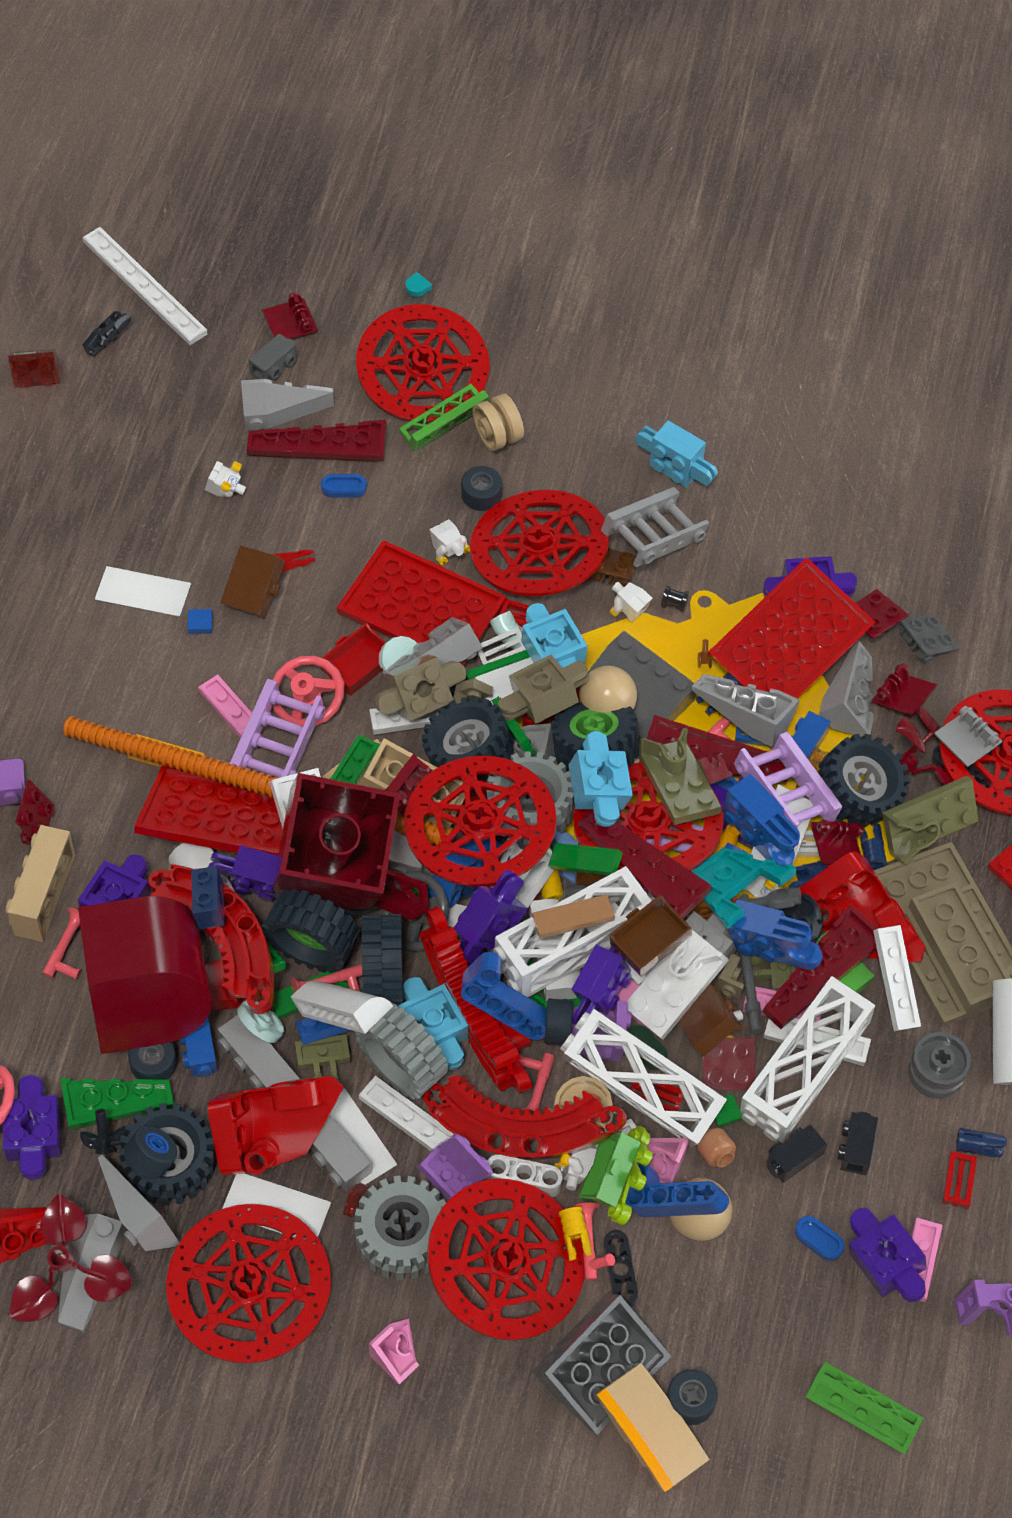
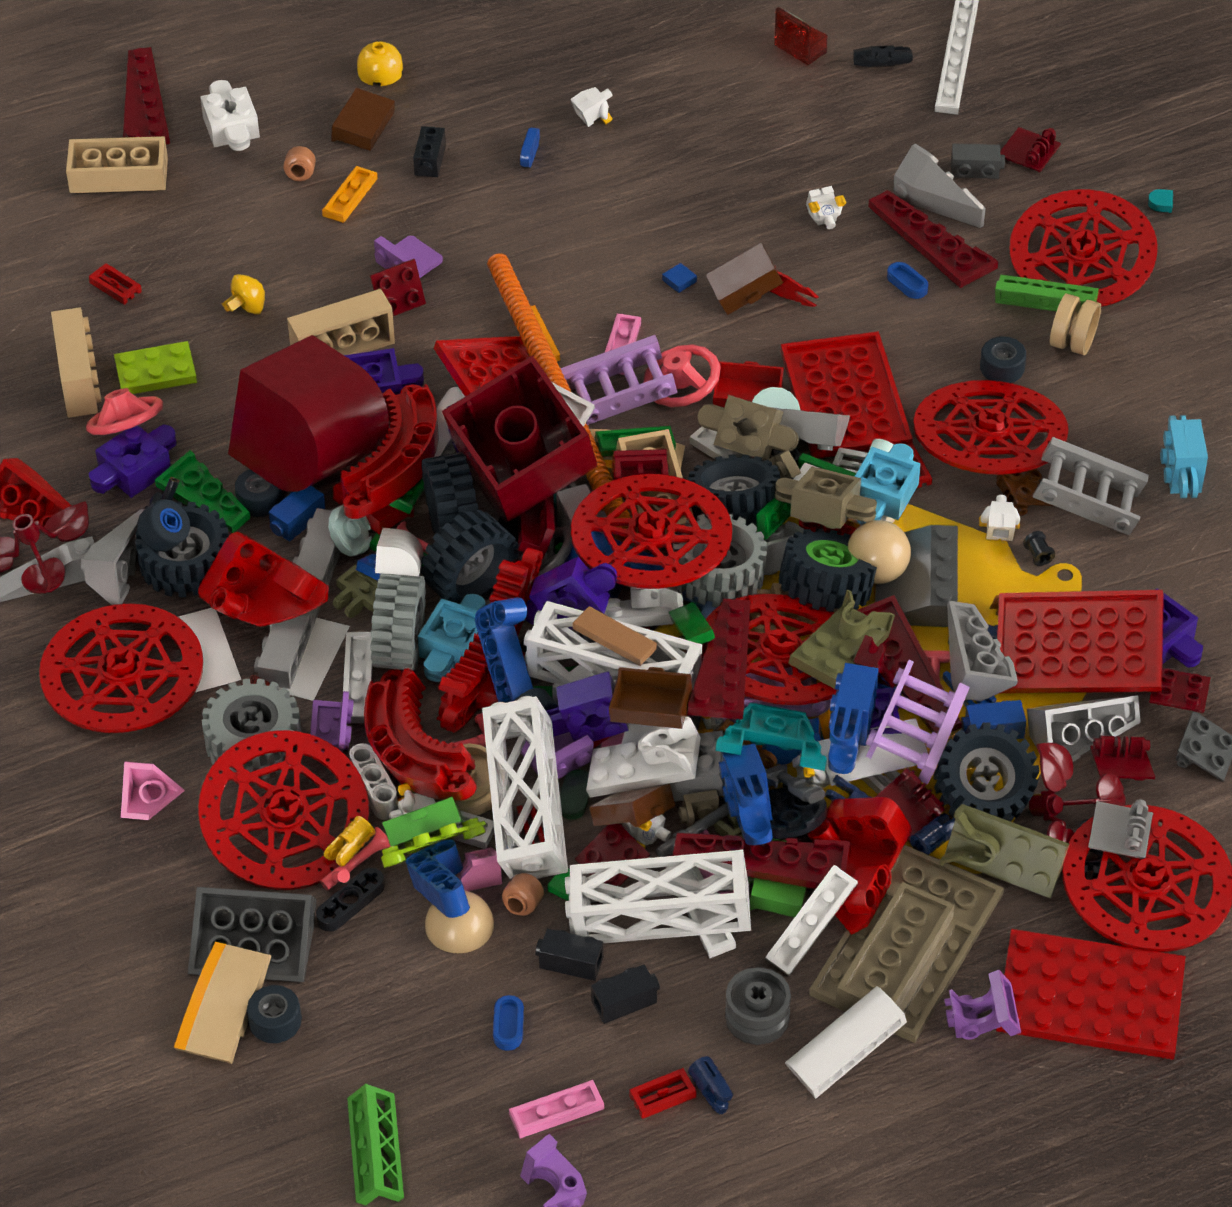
camera: 55 degrees right, 10 degrees down
(143, 591) = (672, 231): white sticker -> none
(207, 897) = (407, 412): dark blue brick -> none
(448, 541) = (924, 370): white piece -> none
(589, 778) = (770, 579): medium azure brick -> none
(887, 1255) = (529, 1072): dark purple brick -> none

